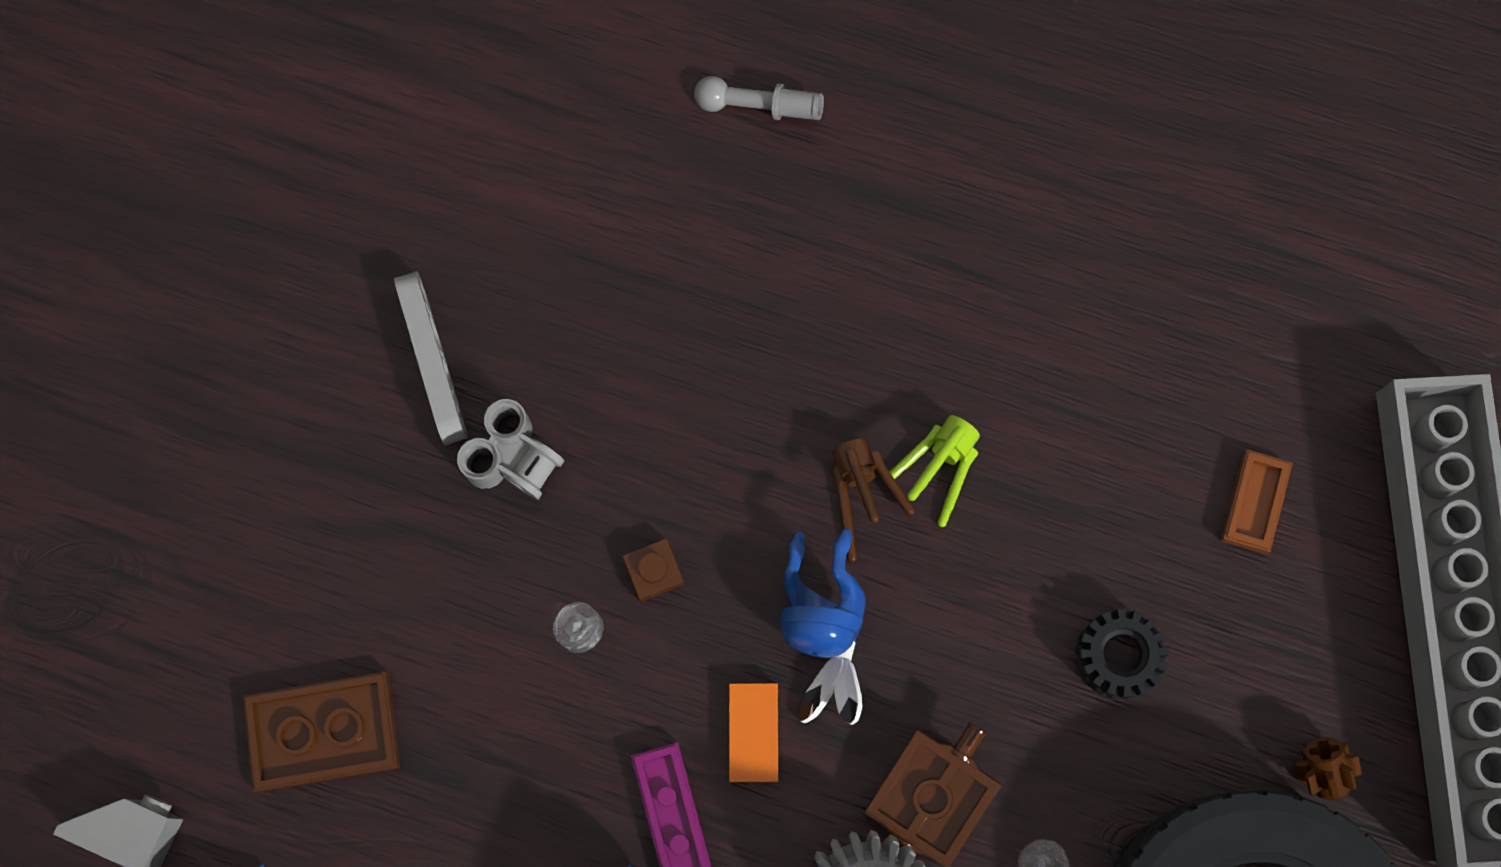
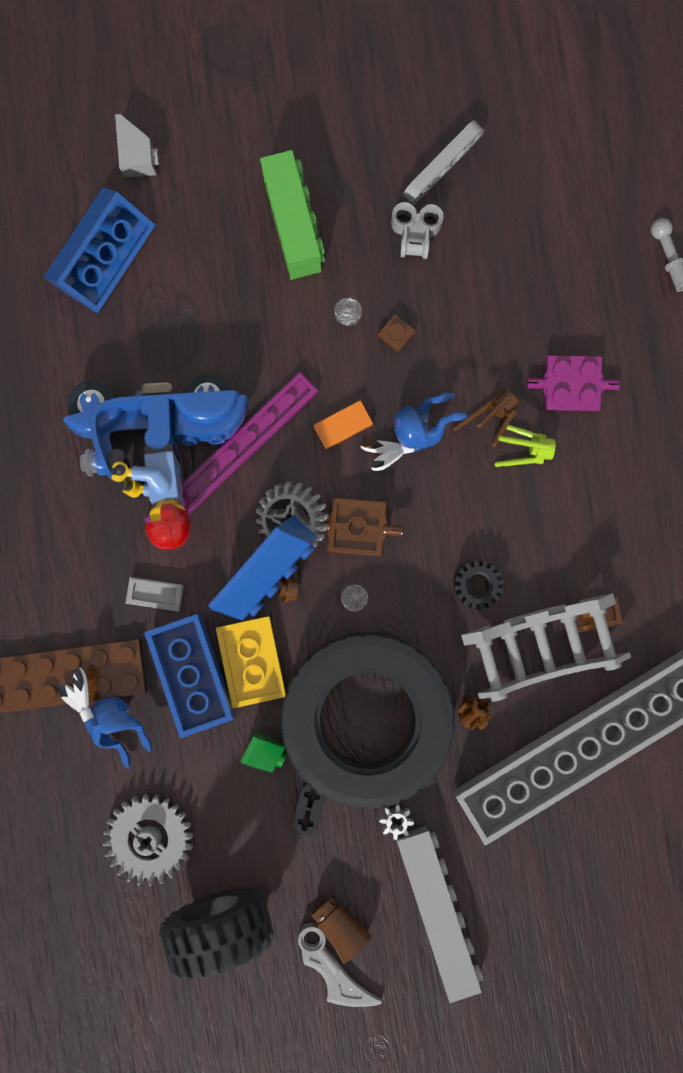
camera: 55 degrees right, 10 degrees up
(321, 732) = (231, 216): reddish brown tile -> none
(379, 635) = (291, 214): none -> bright green brick
(877, 343) = (573, 383): none -> magenta plate
(1225, 593) = (537, 622): none -> light grey fence

